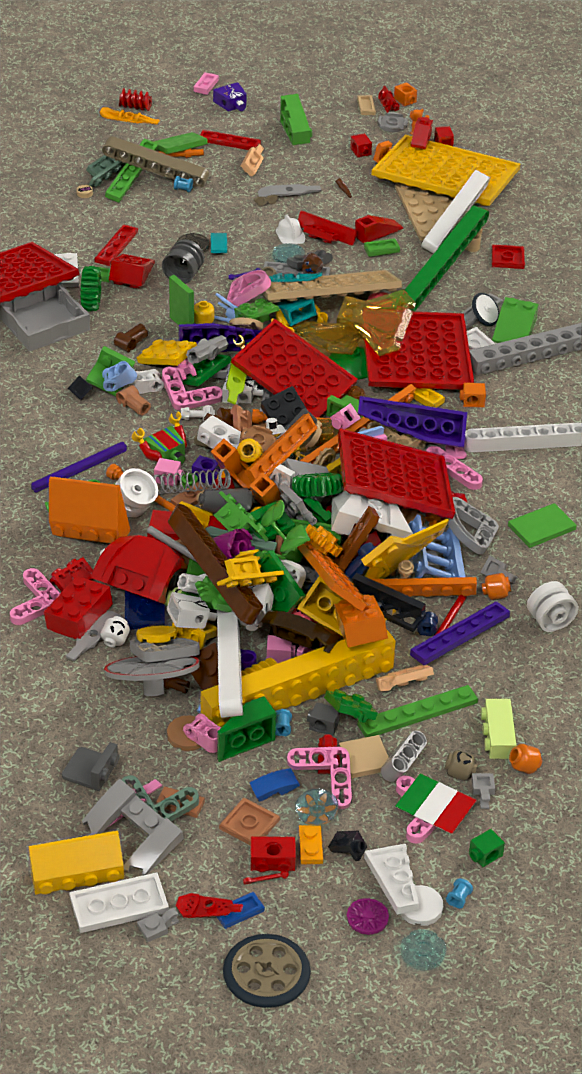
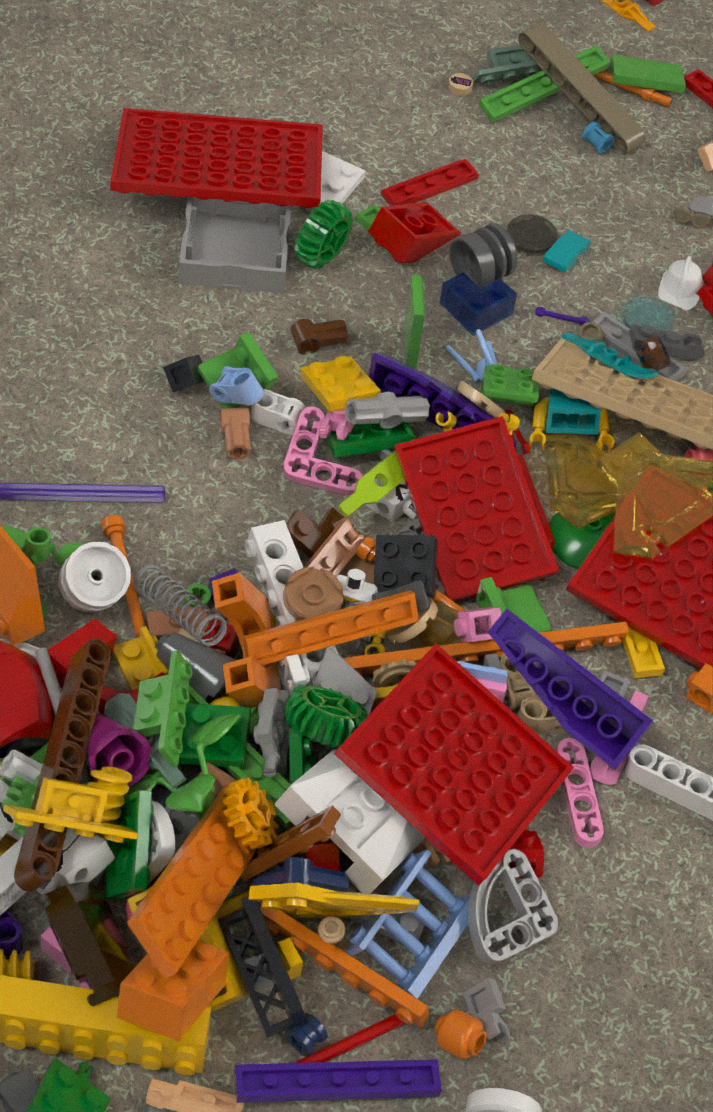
camera: 30 degrees right, 10 degrees up
(164, 444) = (212, 524): torso -> none
(166, 467) = (179, 565): bright pink brick -> none
(186, 412) = (313, 507): white bar -> none
(204, 284) = (477, 306): none -> clear blue brick
(204, 312) = (443, 349): yellow head -> none
(242, 292) = (526, 344): bright pink beam -> none
(248, 444) = (275, 608): yellow head -> none
(356, 392) = (546, 588): clear orange plate -> none
(542, 525) = (625, 969): bright green tile -> none

